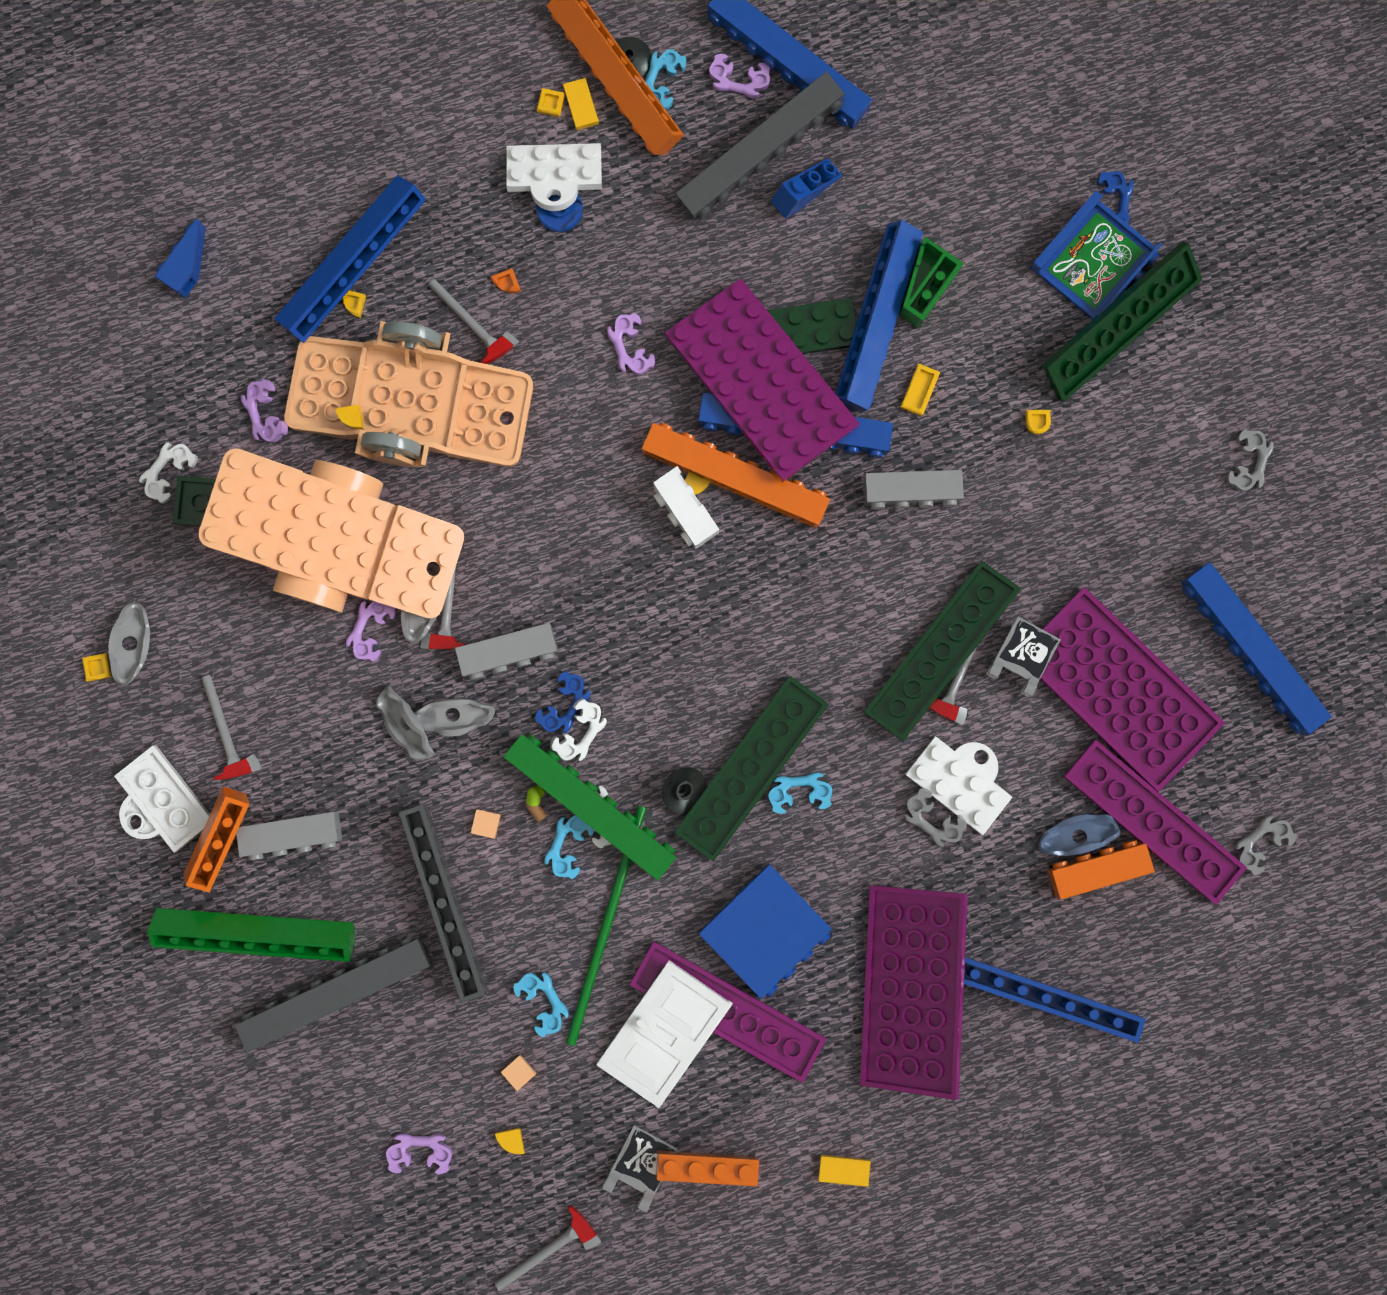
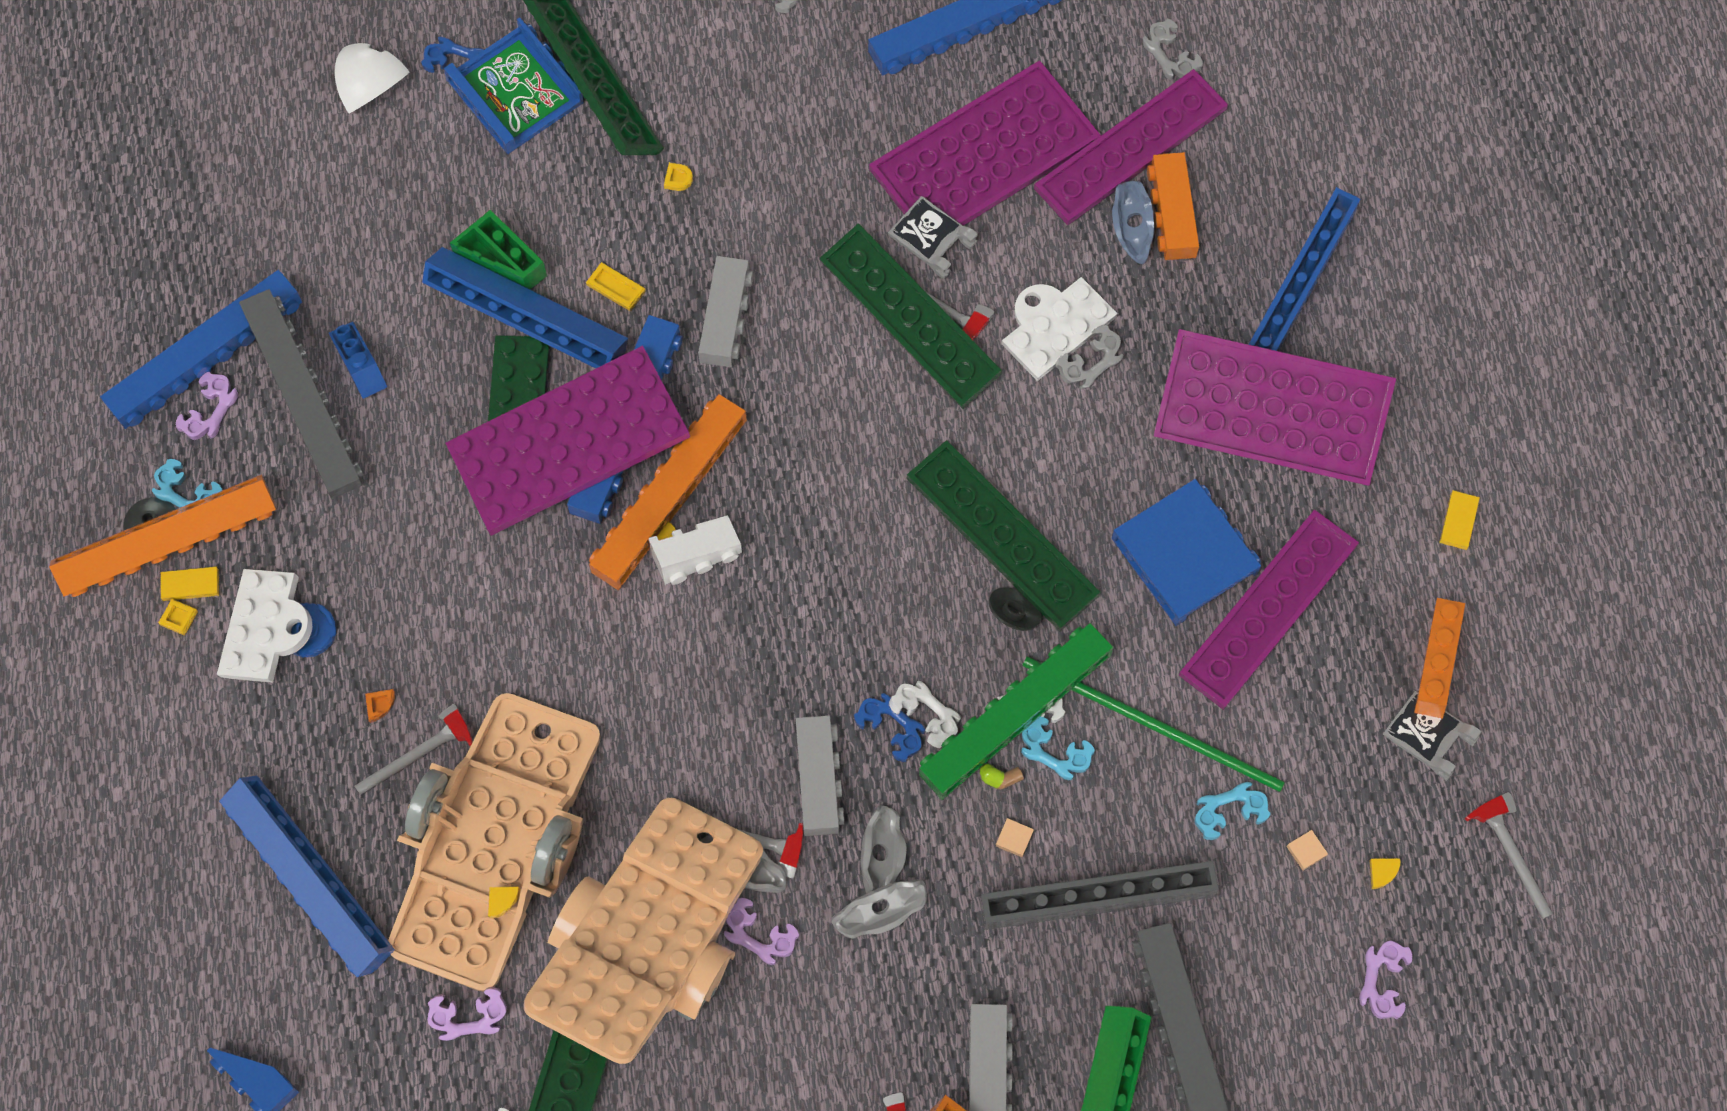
camera: 75 degrees left, 15 degrees down
(354, 303) = (360, 884): yellow tile -> none
(638, 363) = (465, 581): lavender helmet -> none
(664, 1034) = (1285, 679): white door -> none
(821, 791) = (1041, 468): medium azure helmet -> none
(1078, 125) = (365, 74): none -> white brick

